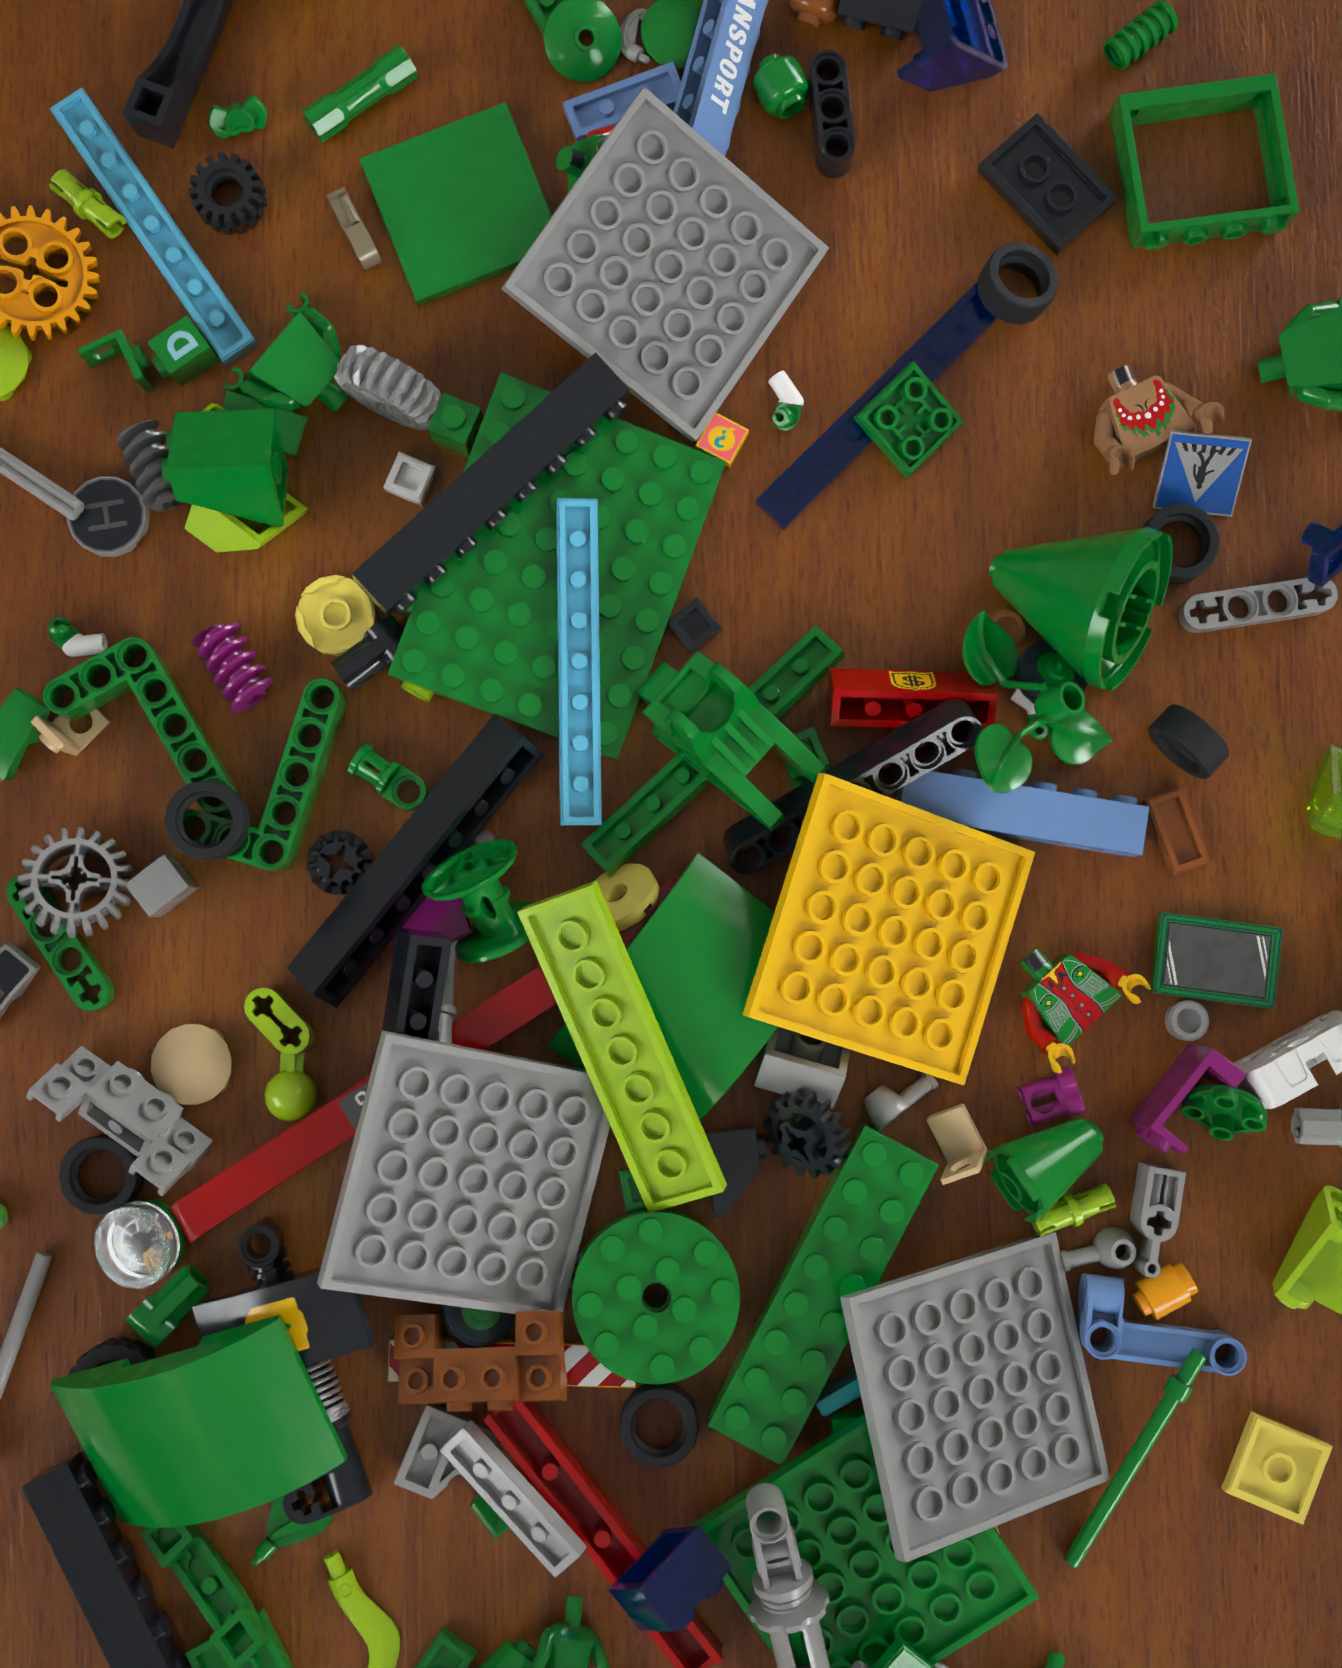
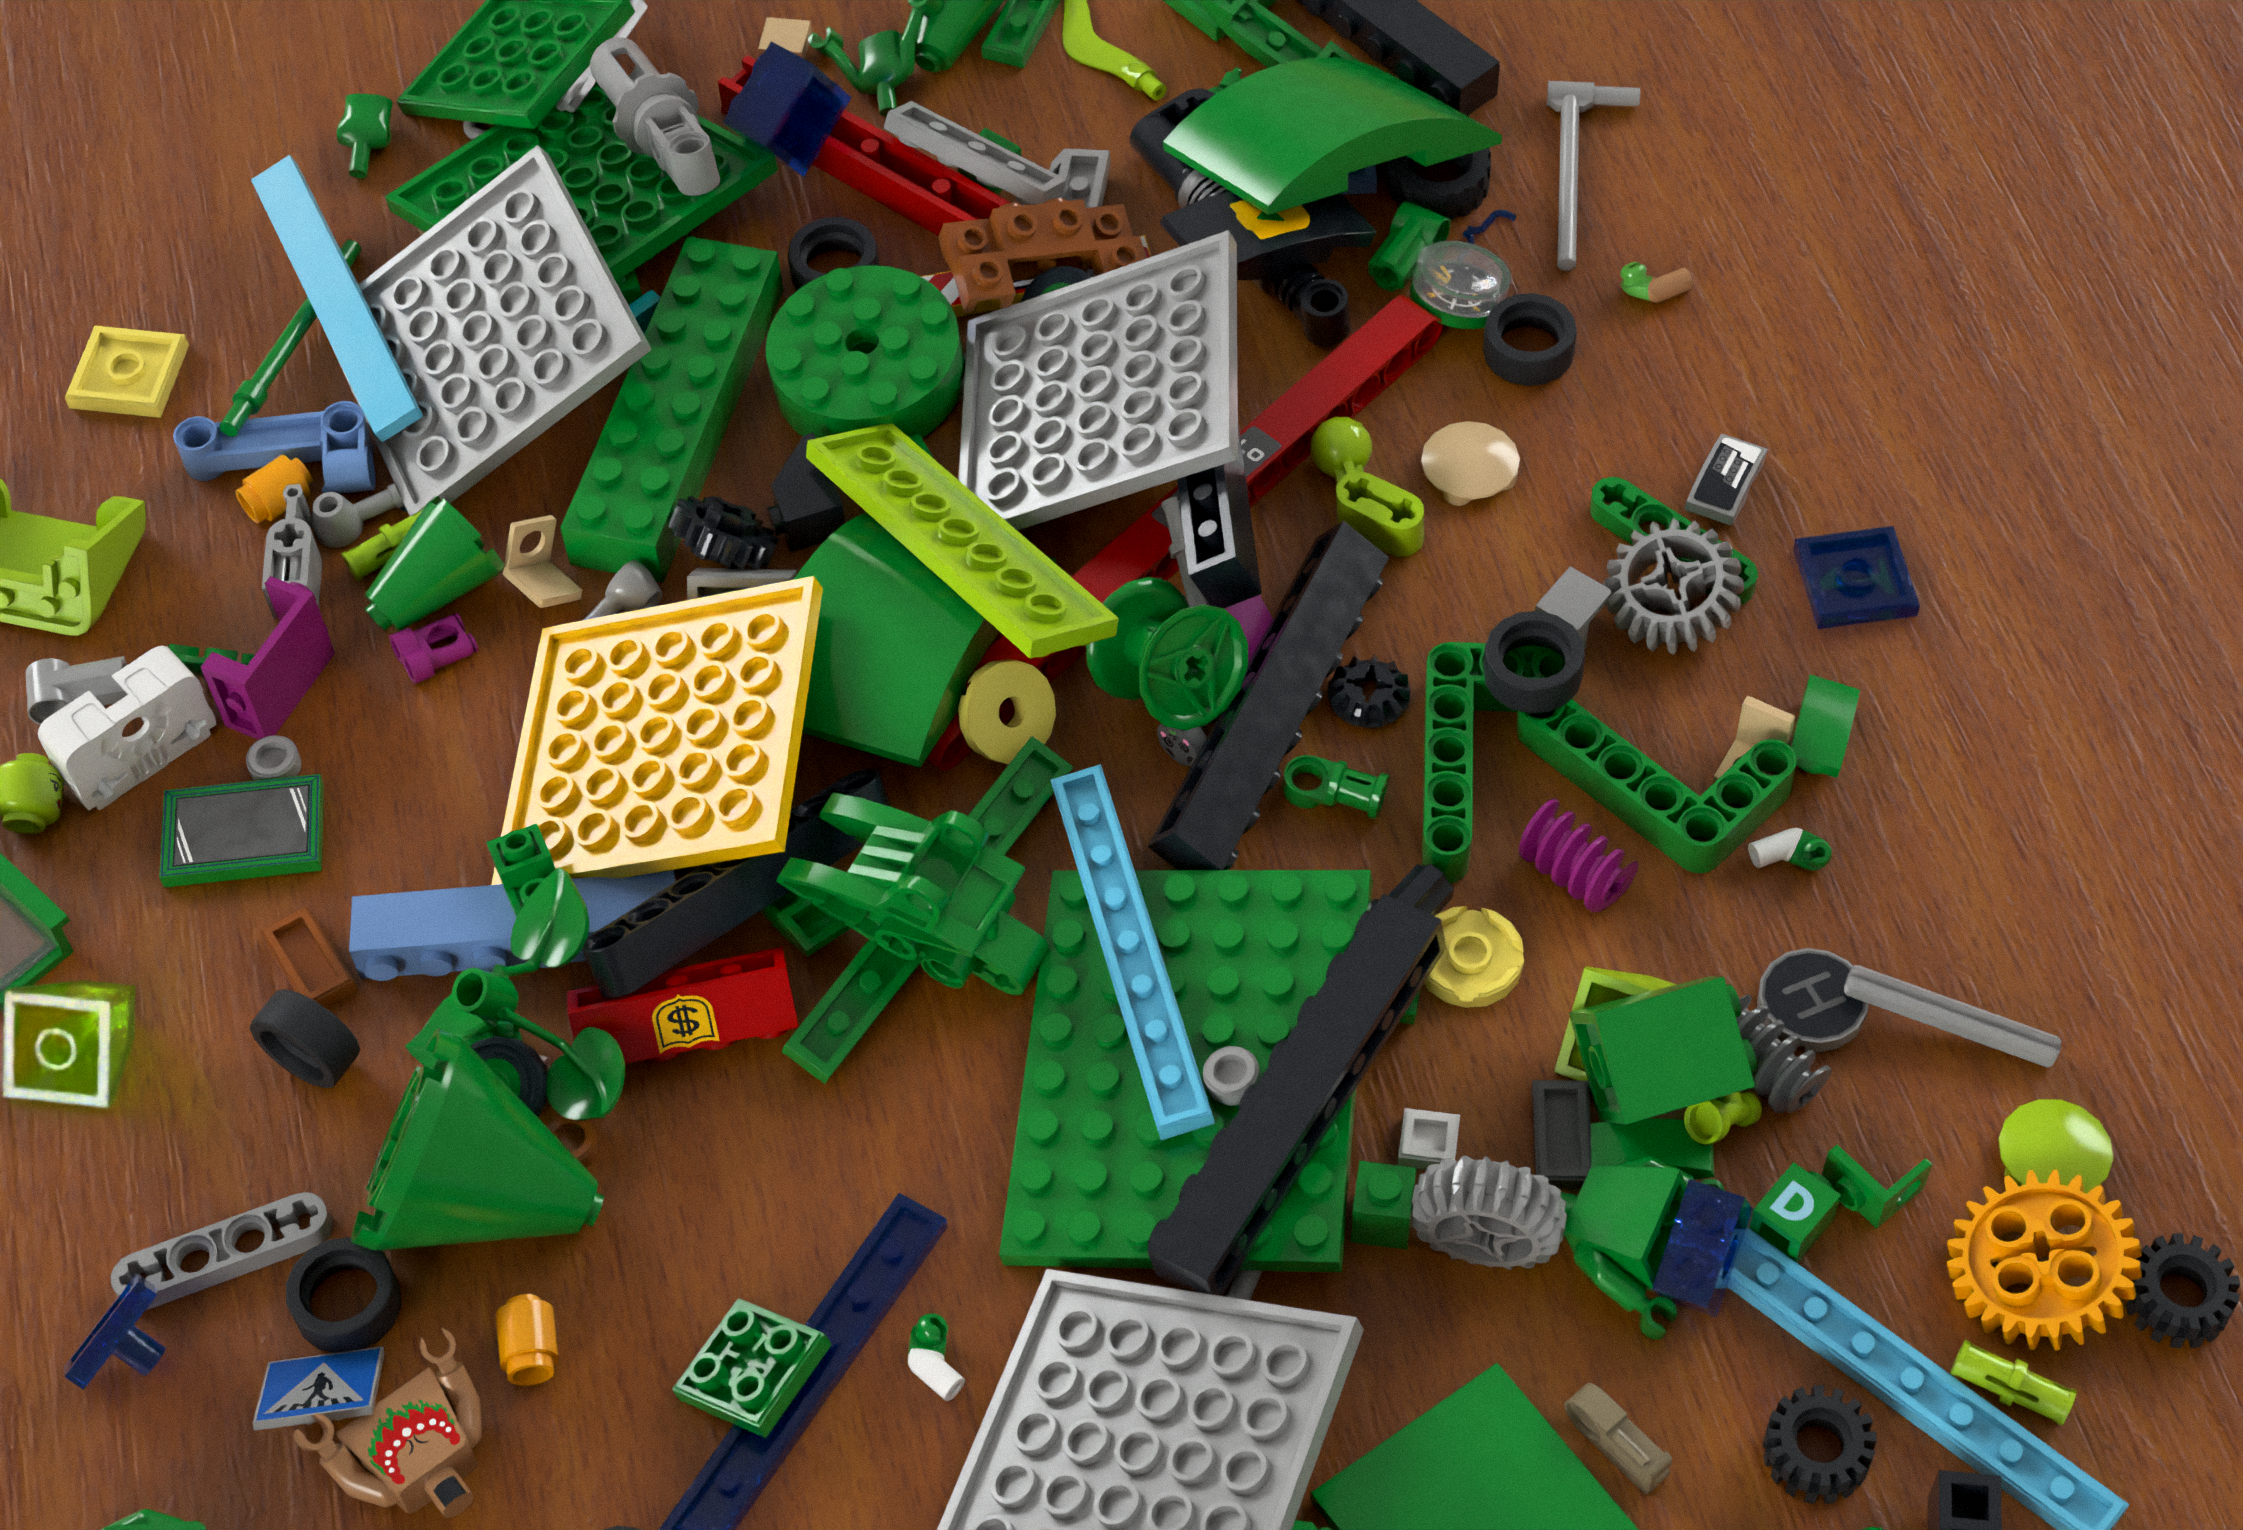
camera: 170 degrees right, 30 degrees down
(109, 1318) = (1468, 233): none -> clear blue piece
(128, 1112) = (1516, 390): light grey bracket -> none
(252, 326) = (1702, 1247): none -> clear blue brick
(318, 460) = (1561, 1131): none -> dark grey tile
(534, 528) = (1230, 1073): none -> light grey tile
(694, 625) = (992, 1051): black tile -> none
(722, 439) = (1009, 1287): tile -> none
(1008, 829) = (521, 863): none -> green slope
(1056, 477) = (527, 1340): none -> light orange brick
(1069, 998) = (425, 740): torso -> none
(1096, 1487) = (337, 299): none -> medium azure tile

